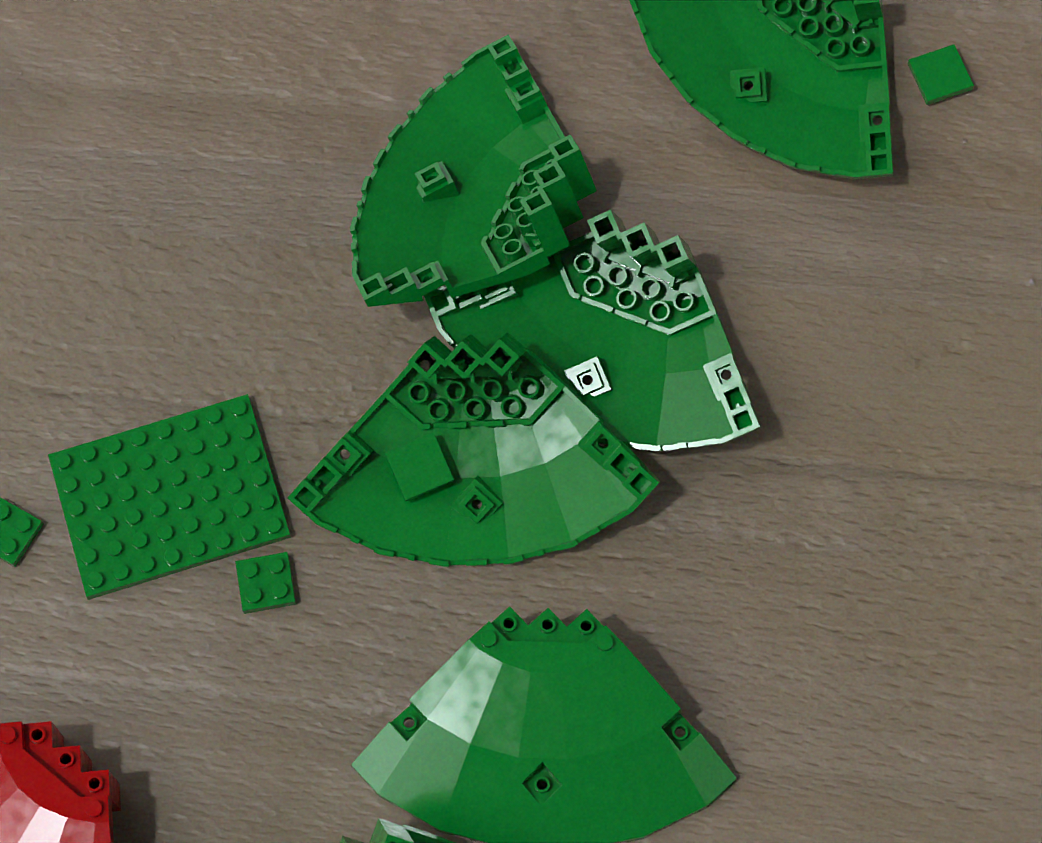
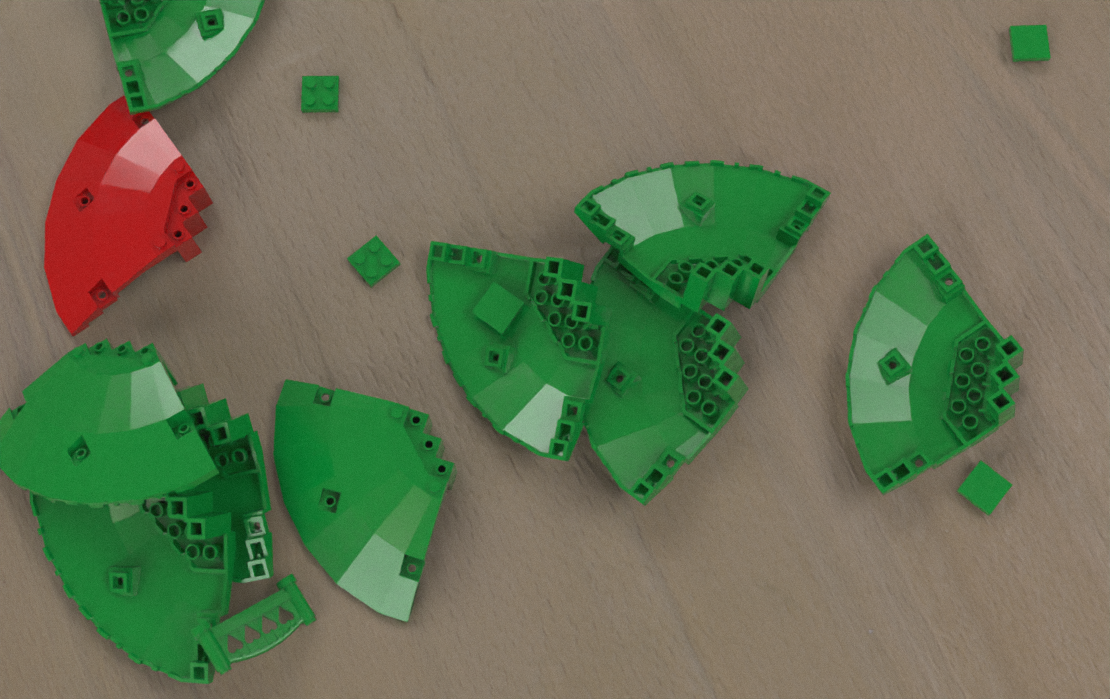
camera: 55 degrees right, 5 degrees up
(168, 496) = (396, 173): green plate -> none

